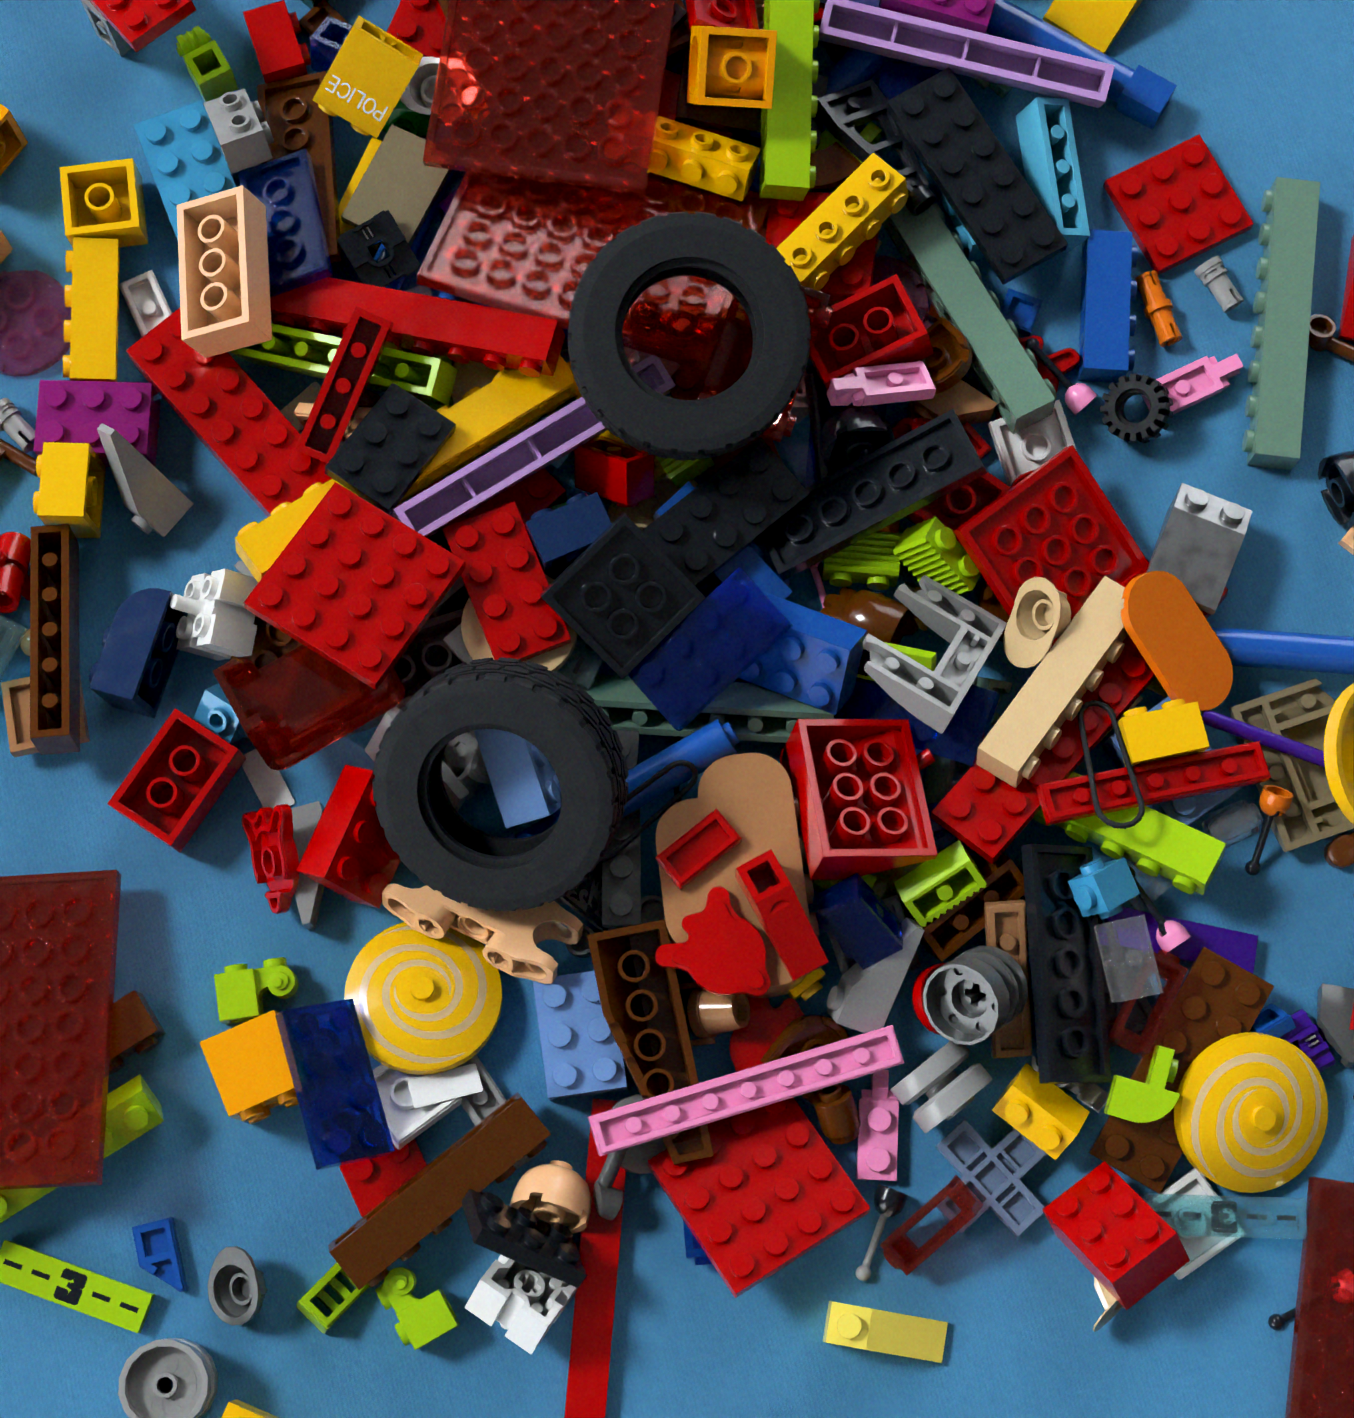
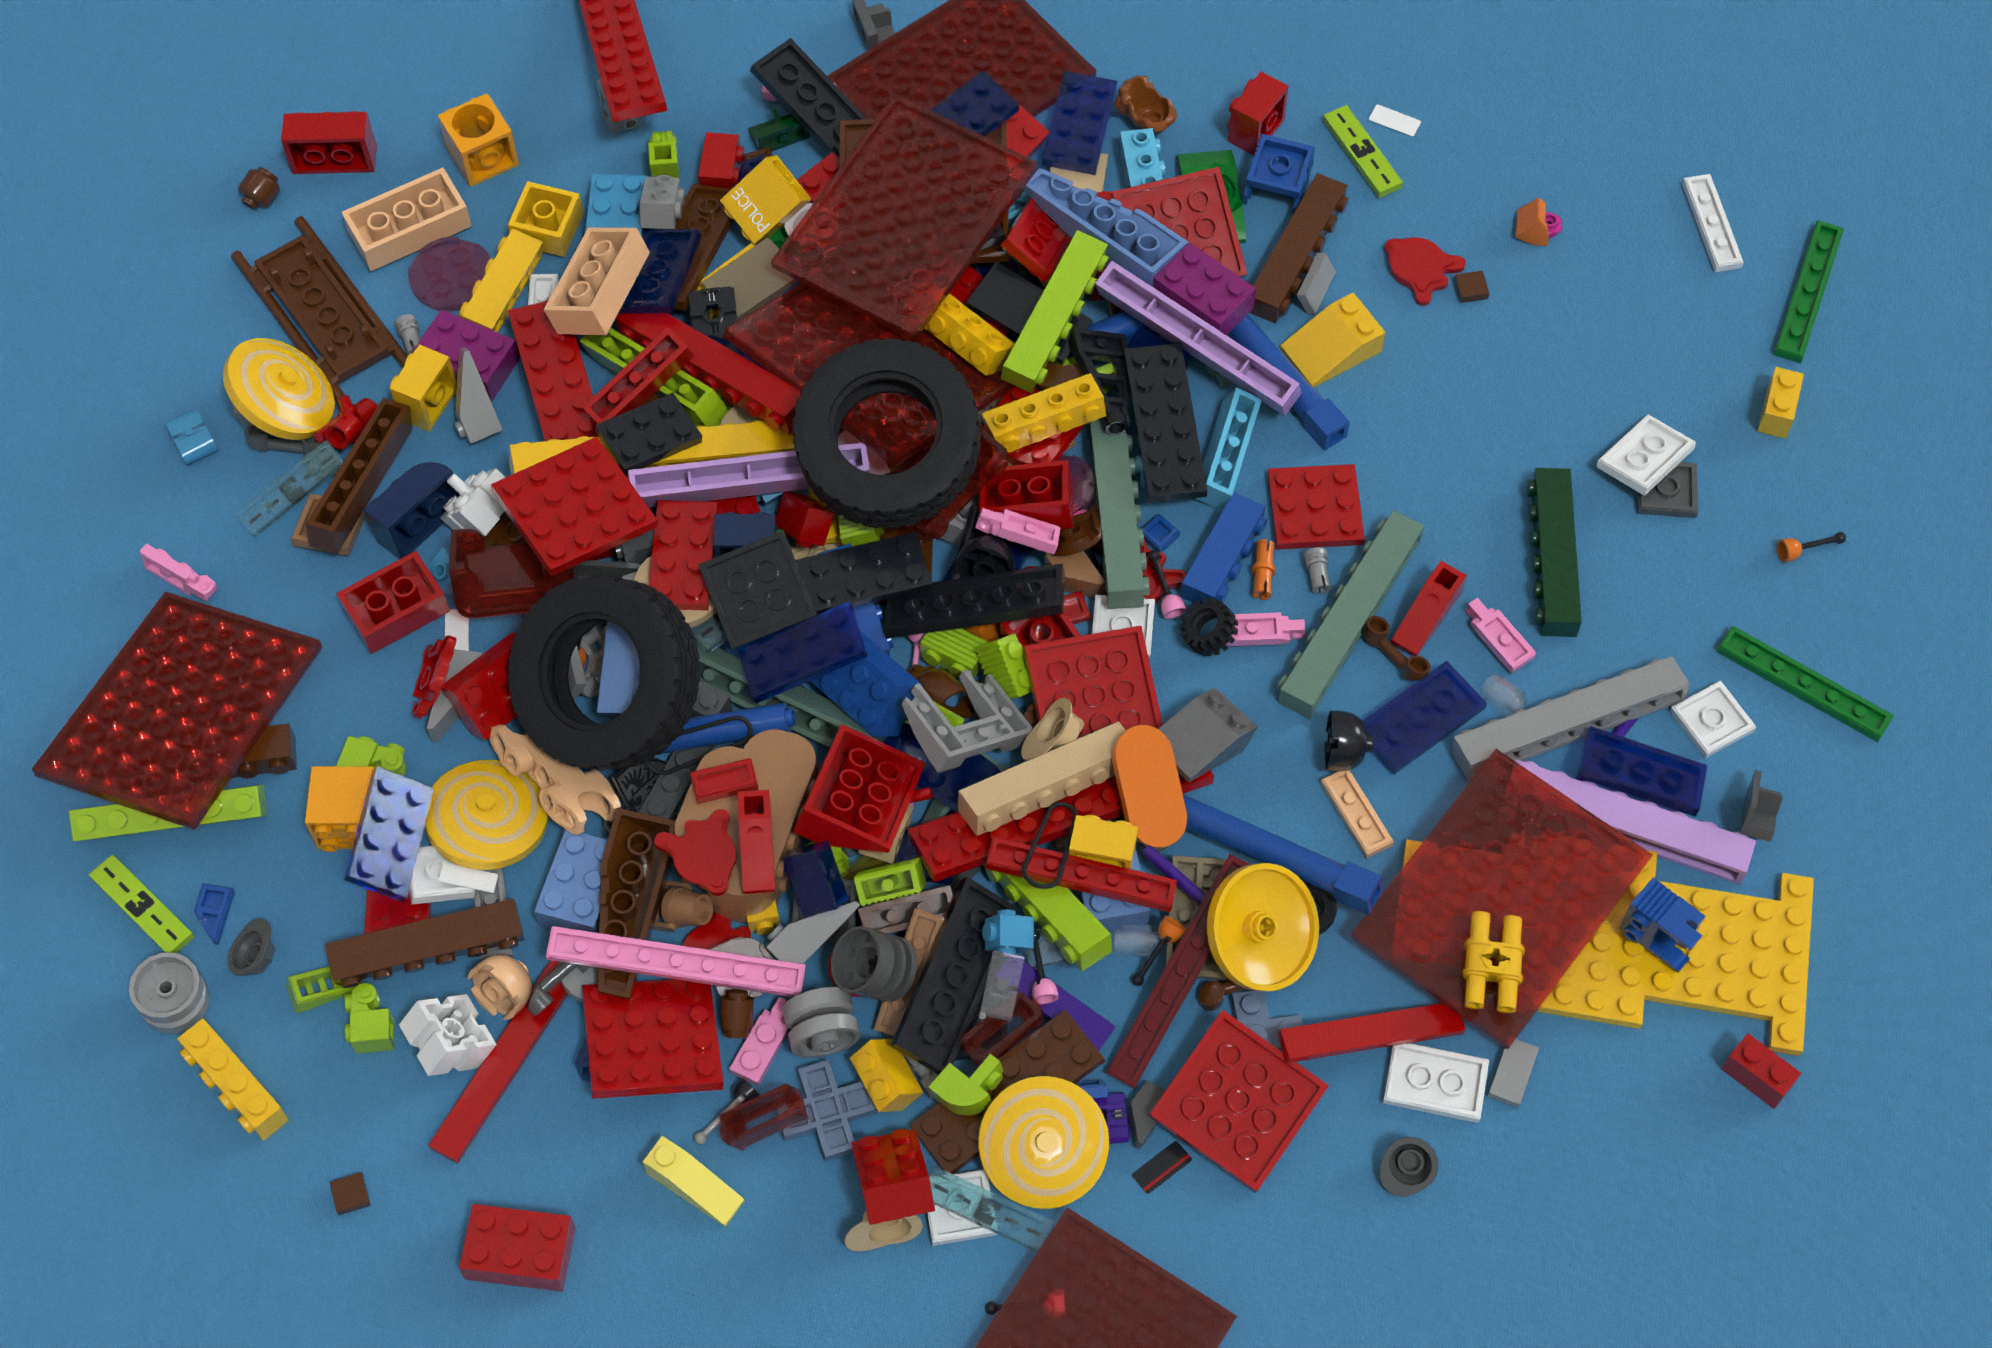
camera: 25 degrees right, 15 degrees down
(523, 1237) = (465, 991): black plate -> none
(731, 67) = (1014, 277): light orange brick -> none
(1304, 851) = (1168, 992): none -> dark red tile

